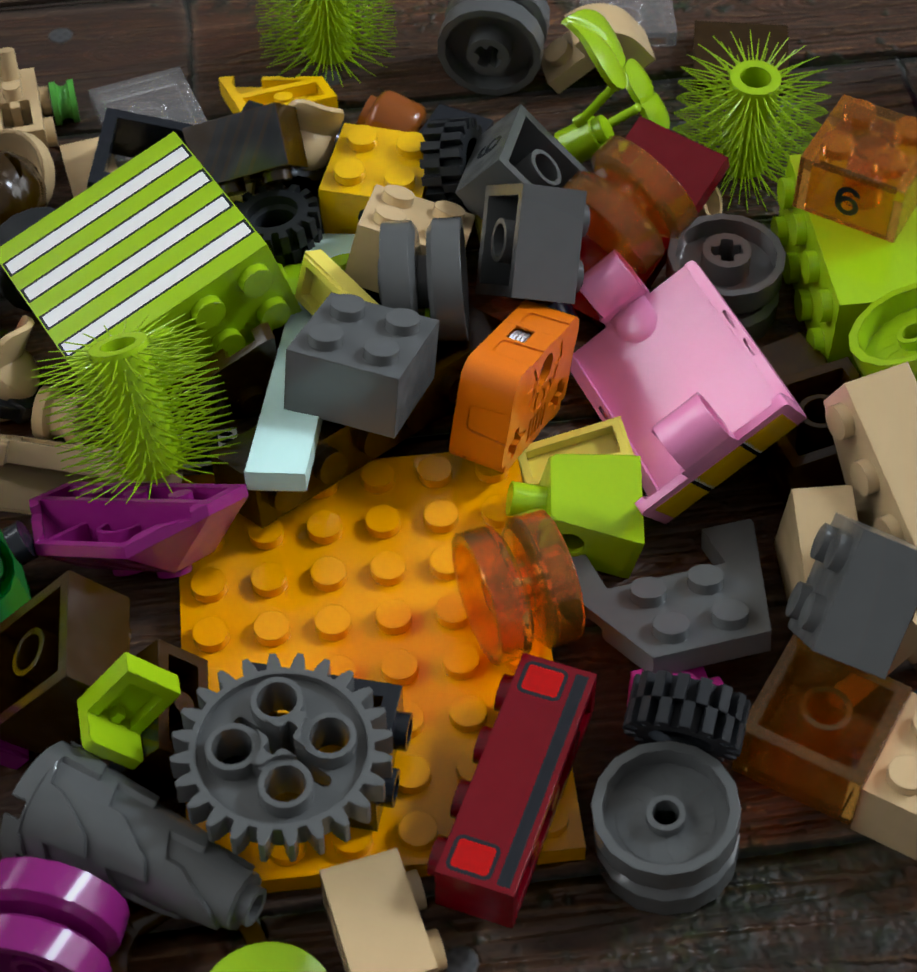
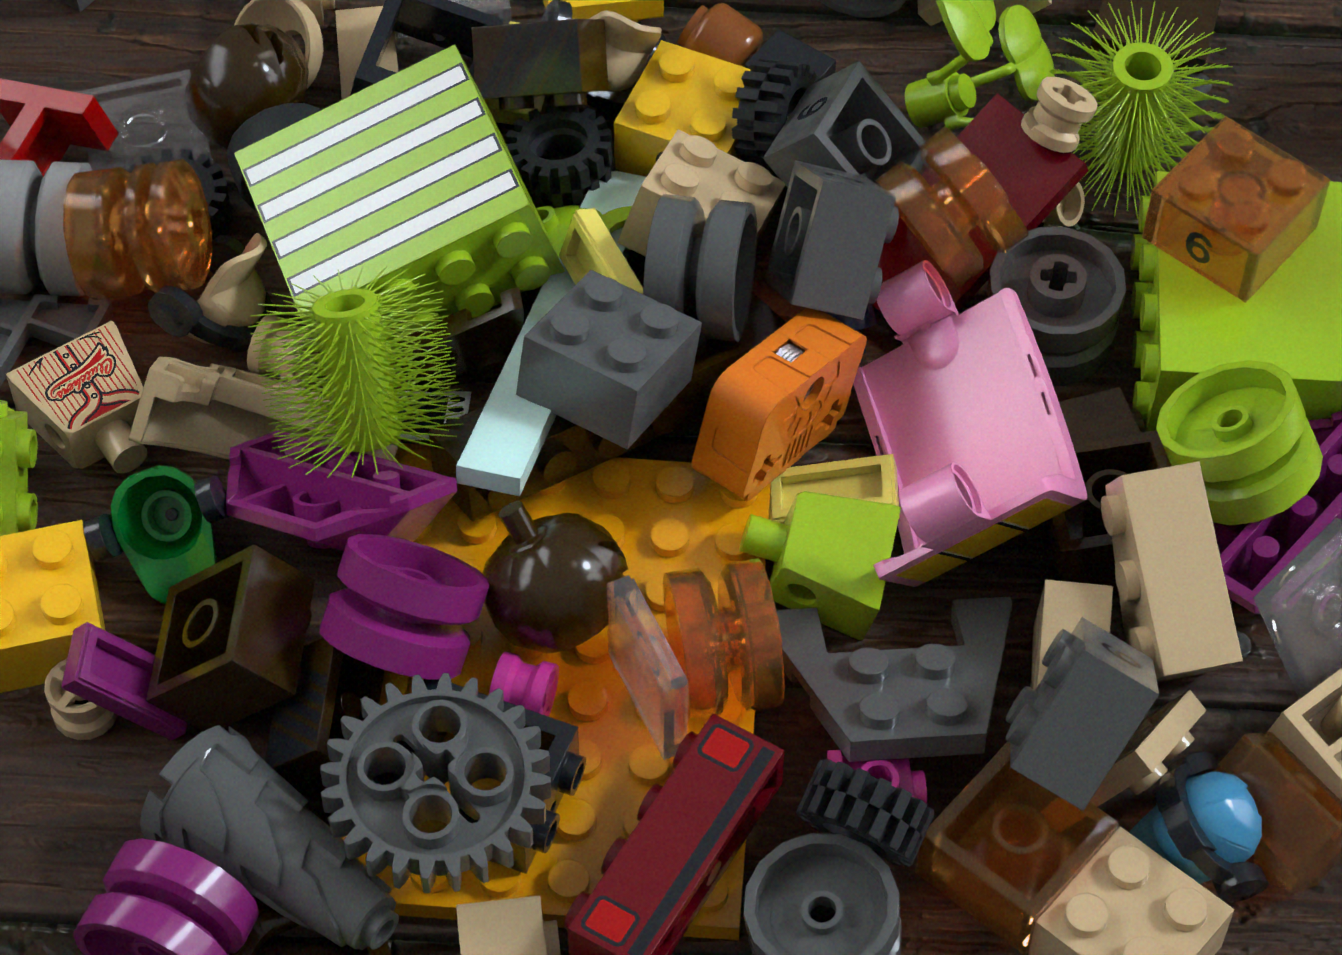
camera: 10 degrees right, 5 degrees up
(123, 706) = (286, 700): lime bracket -> none
(218, 604) = (403, 606): none -> magenta wheel
(343, 654) = (525, 683): none -> dark pink wheel
(350, 561) = (551, 579): none -> dark brown piece
(454, 621) = (647, 666): none -> clear tile
(698, 120) = (1059, 114): none -> tan wheel

